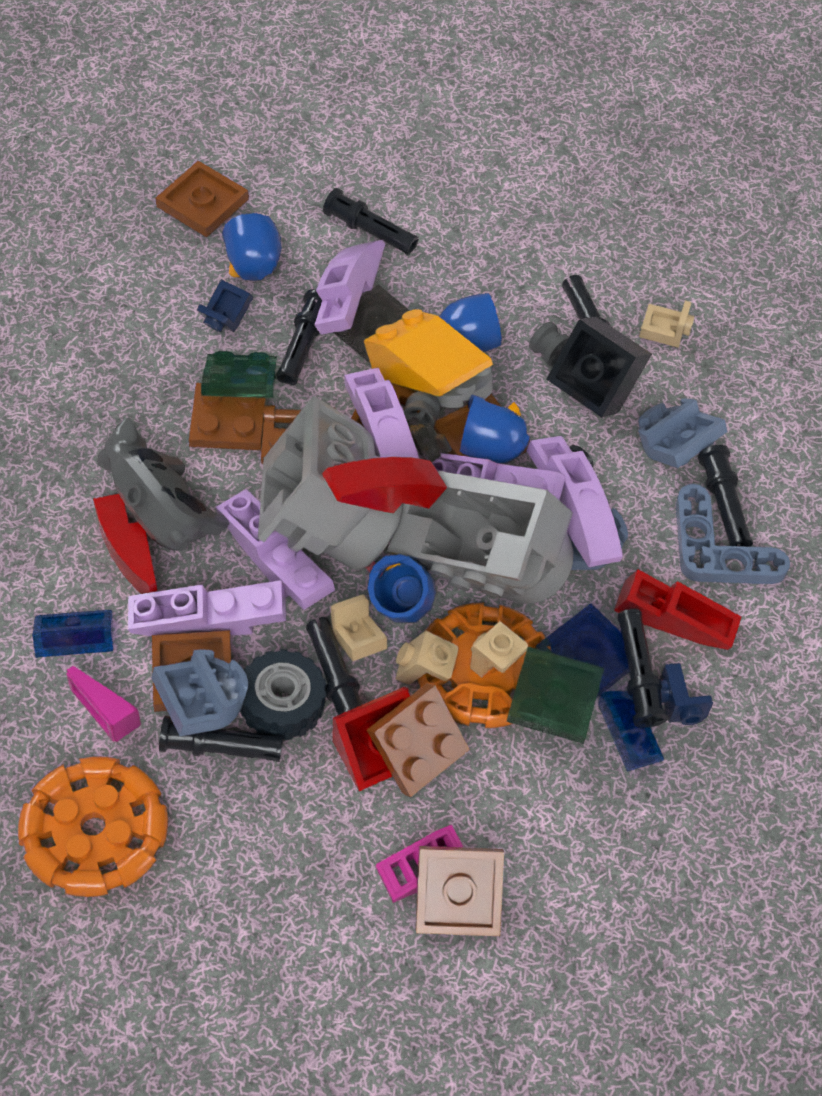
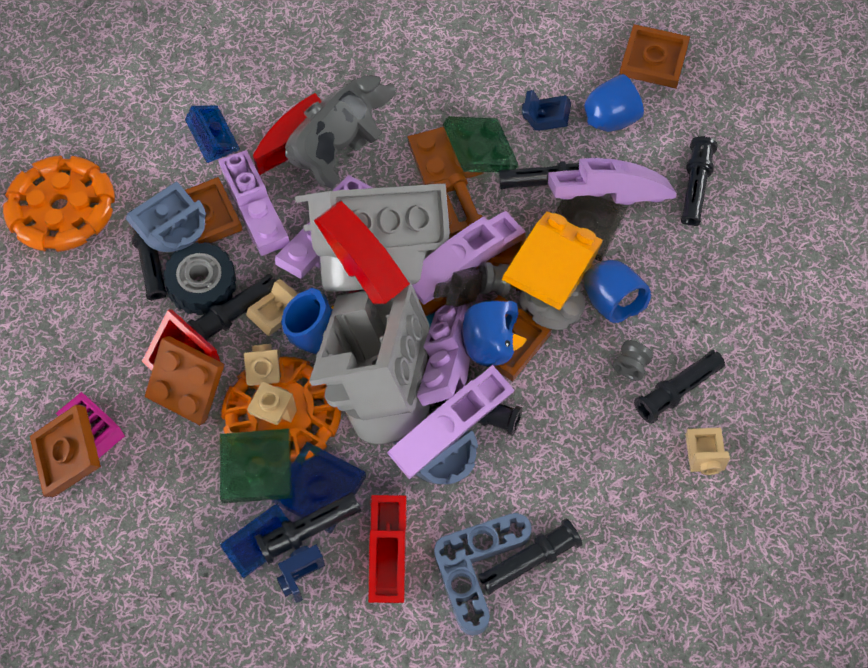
camera: 75 degrees right, 5 degrees up
(109, 710) = (150, 170): dark pink slope -> none
(598, 366) = (611, 400): black brick -> none
(678, 432) = (582, 494): sand blue slope -> none

